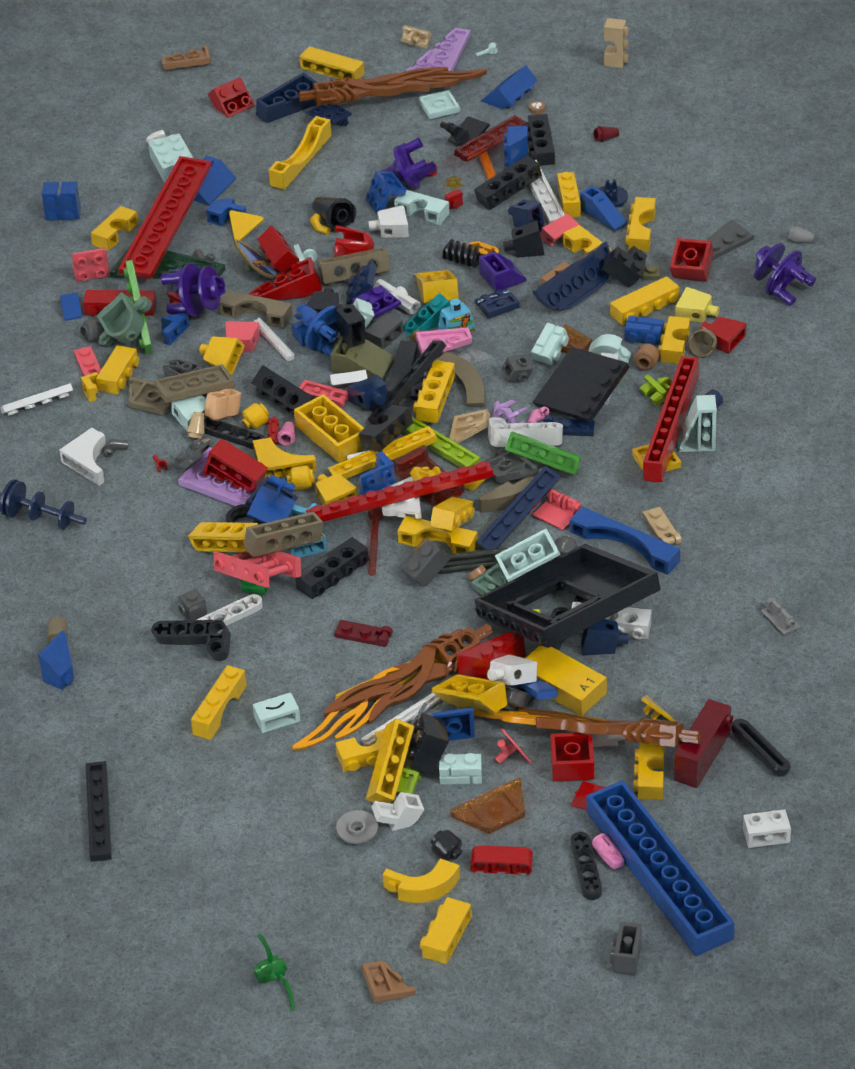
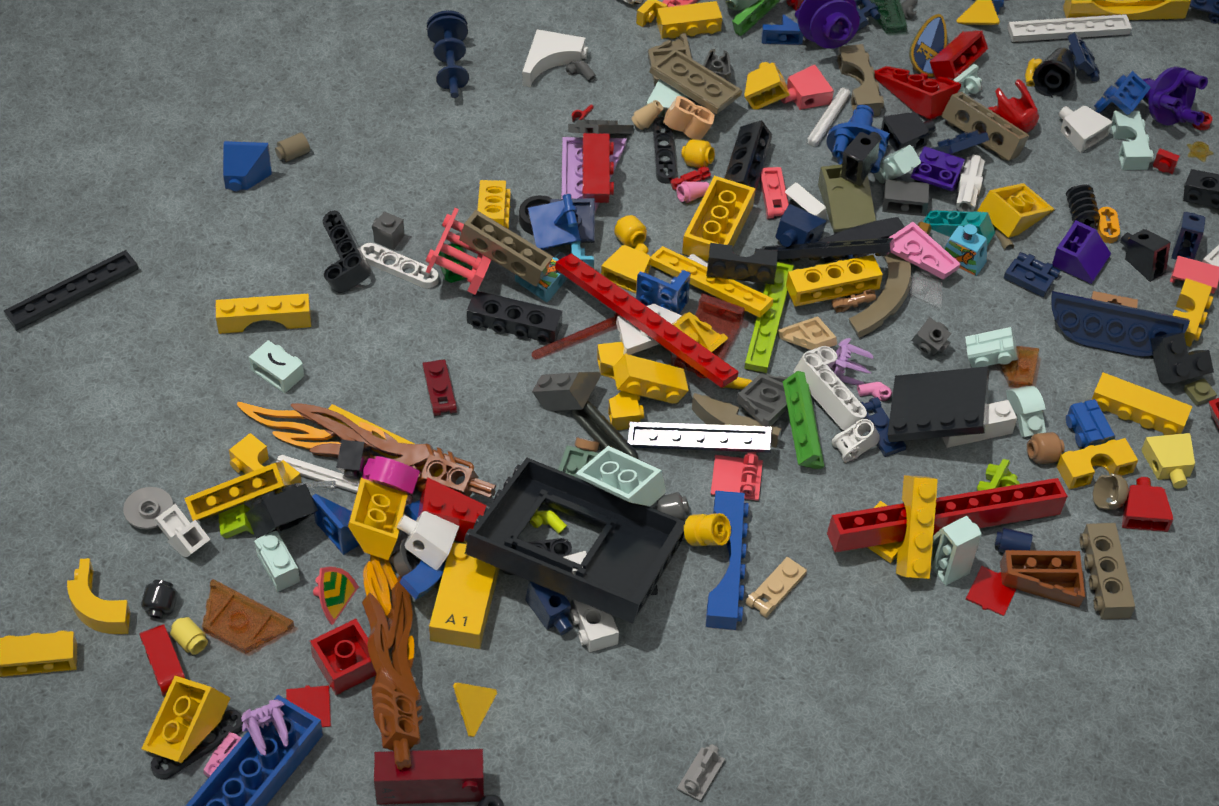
camera: 55 degrees right, 10 degrees up
(279, 461) = (639, 198): yellow arch -> none
(294, 190) = (1064, 27): none -> white plate
(326, 191) = (1084, 57): none -> dark blue plate
(405, 691) = (353, 458): none -> black brick
(434, 674) = (391, 474): none -> dark pink brick
(454, 393) = (844, 304): none -> medium nougat piece
(491, 837) = (188, 635): none -> light yellow brick
(567, 858) = (185, 719): none -> yellow slope
(575, 441) = (855, 441): none -> white piece
(600, 534) = (707, 529): none -> yellow wheel
(608, 800) = (261, 716): none -> lavender piece
(649, 782) = (349, 747): yellow arch -> none
(663, 413) = (920, 503): none -> yellow arch
(734, 431) = (989, 592): none -> red piece
(746, 397) = (1045, 574): none -> dark orange wedge
(759, 371) = (1120, 602): none -> dark tan brick

